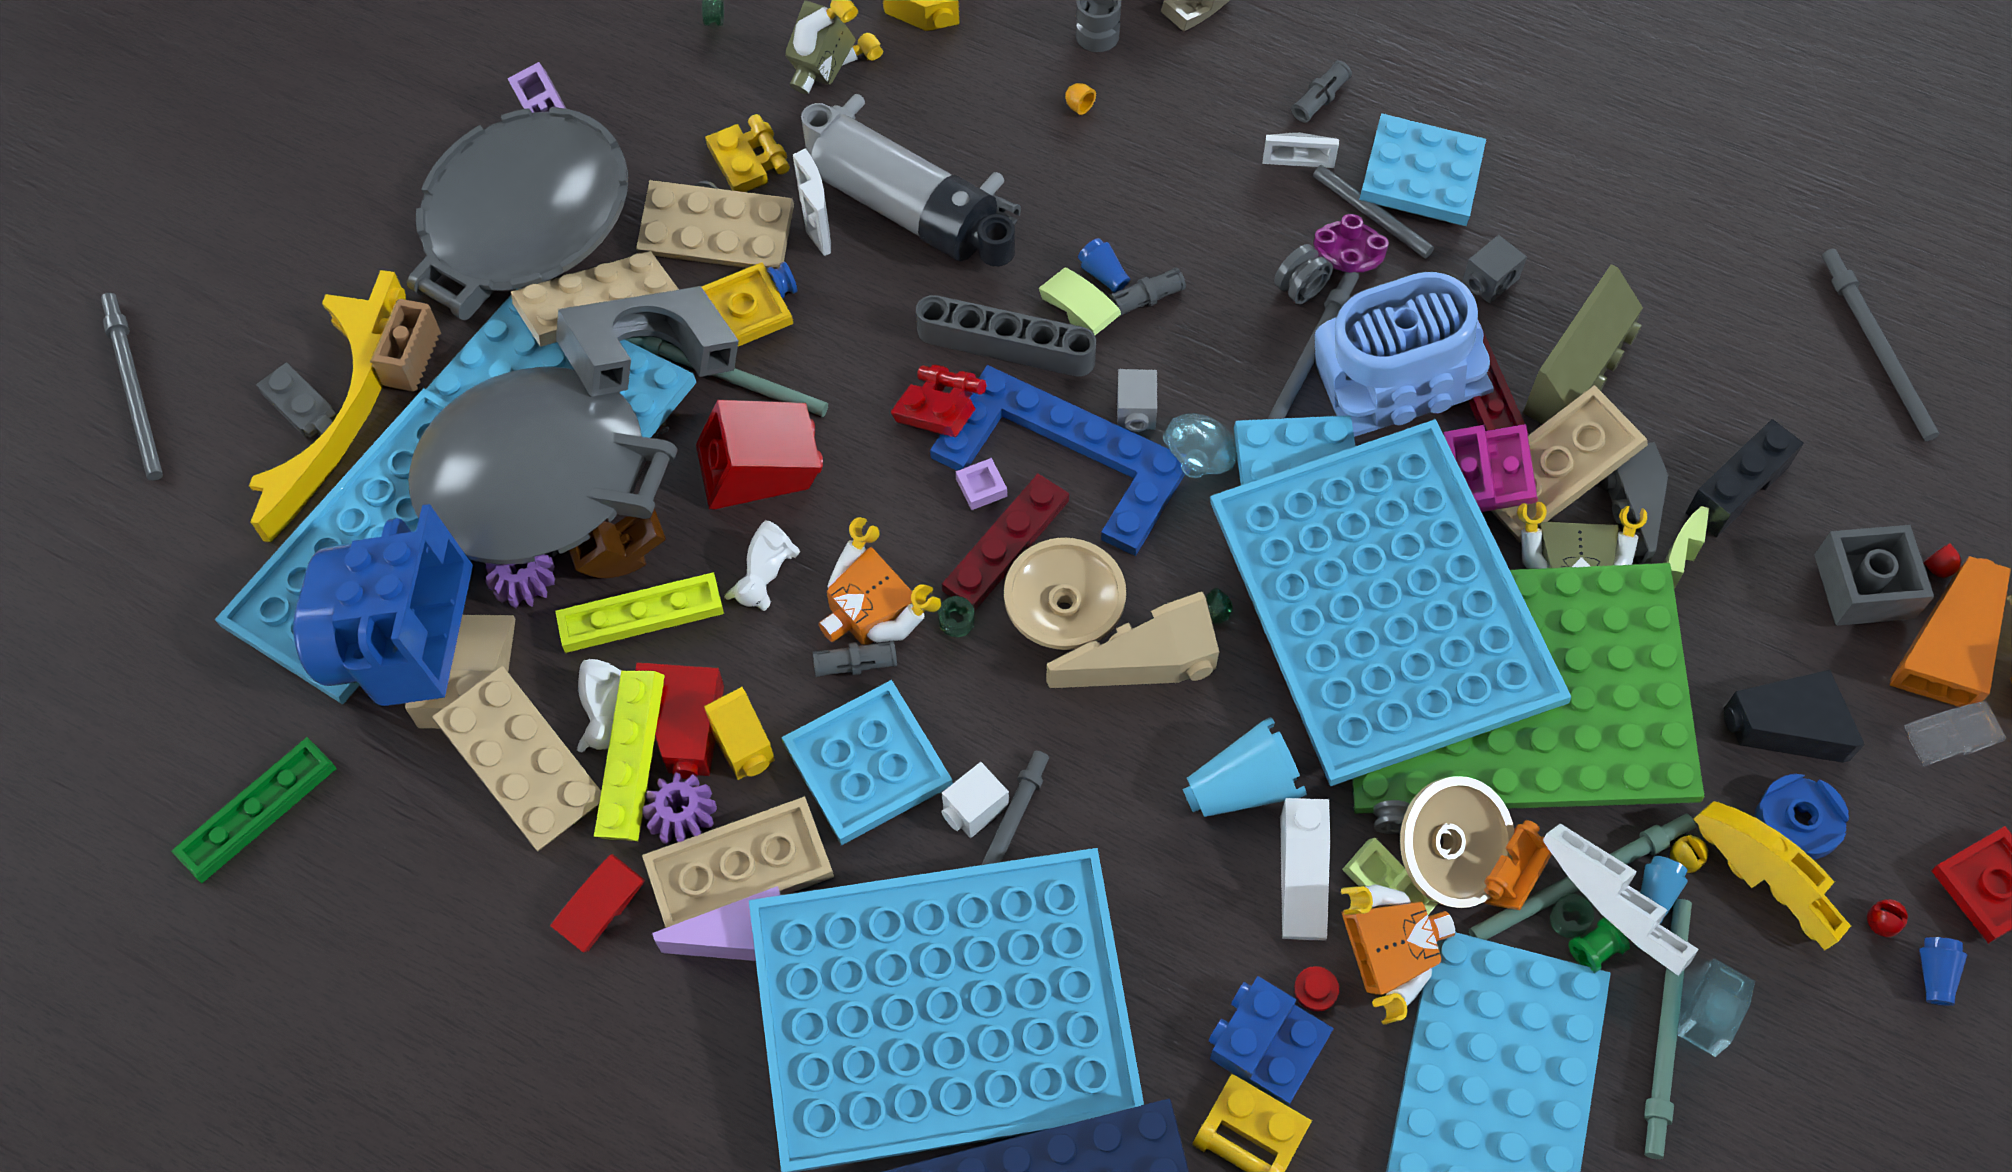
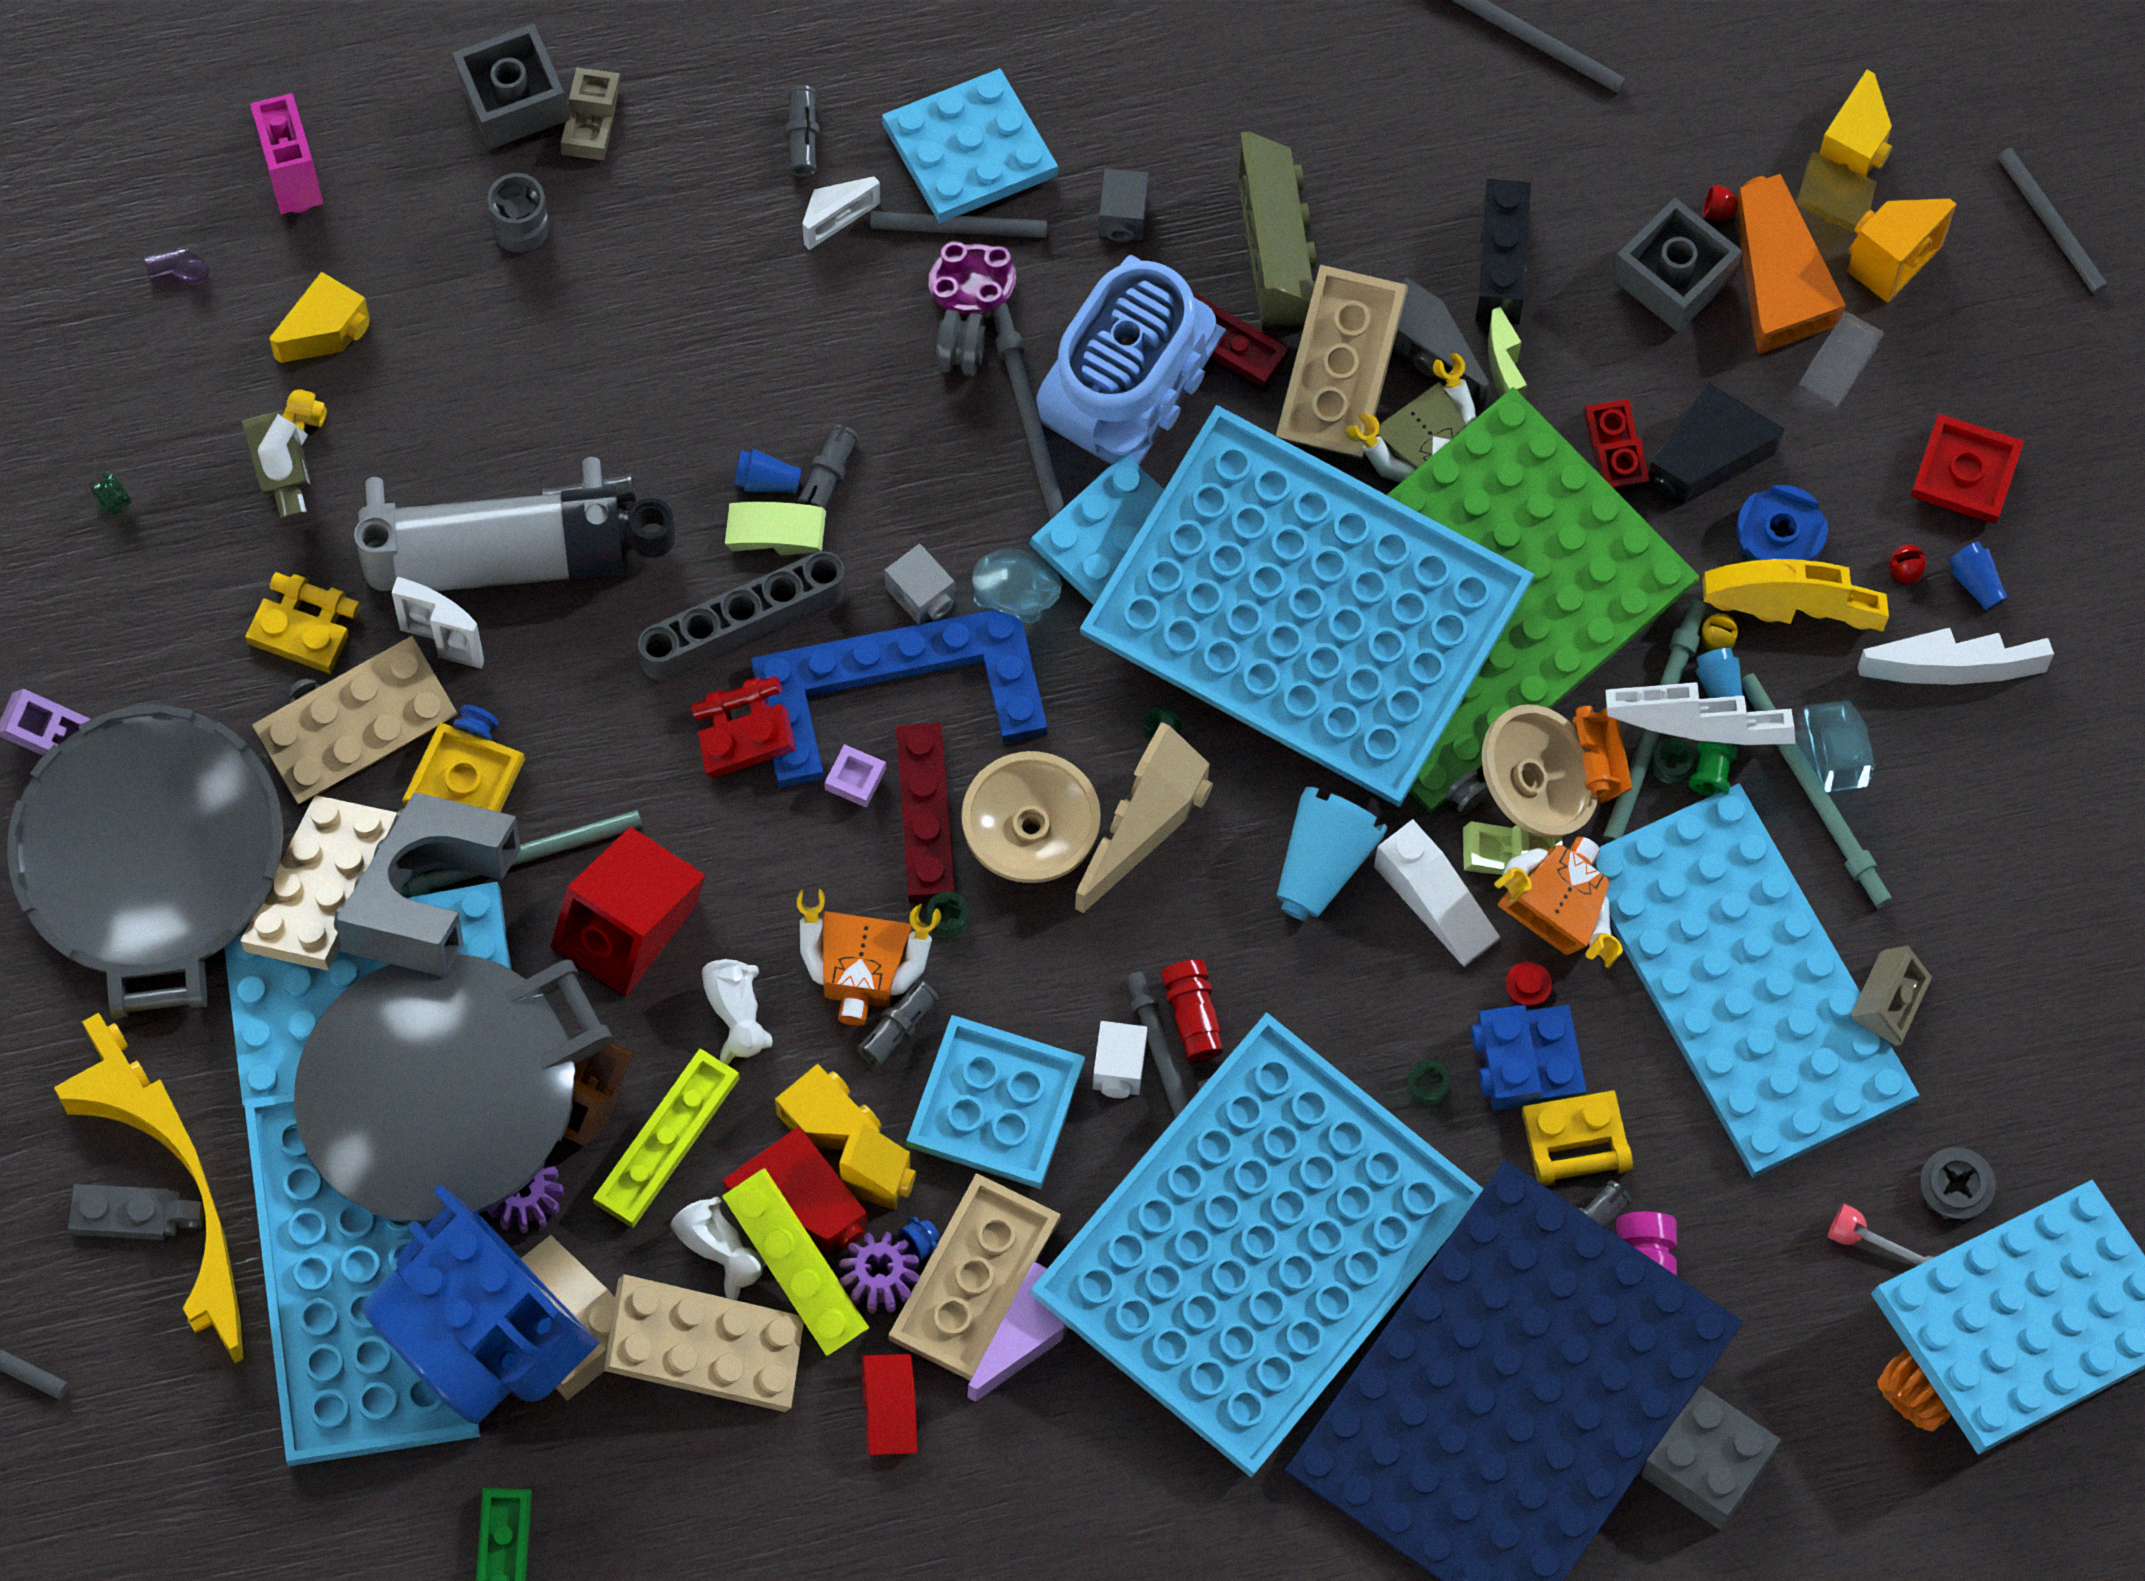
camera: 45 degrees left, 5 degrees up
(405, 345) = (185, 1073): medium nougat brick -> none
(728, 809) = (921, 1238): none -> blue plate
(753, 666) = (822, 1109): none -> yellow slope
(1056, 810) = (1193, 1009): none -> red axle
(1080, 97) = (574, 312): light orange hinge -> none
(1176, 984) = (1416, 1075): none -> clear green bush
(1495, 465) = (1295, 405): dark pink plate -> none
(1721, 665) = (1615, 443): none -> red slope
(1856, 1008) = (1939, 660): none -> white slope

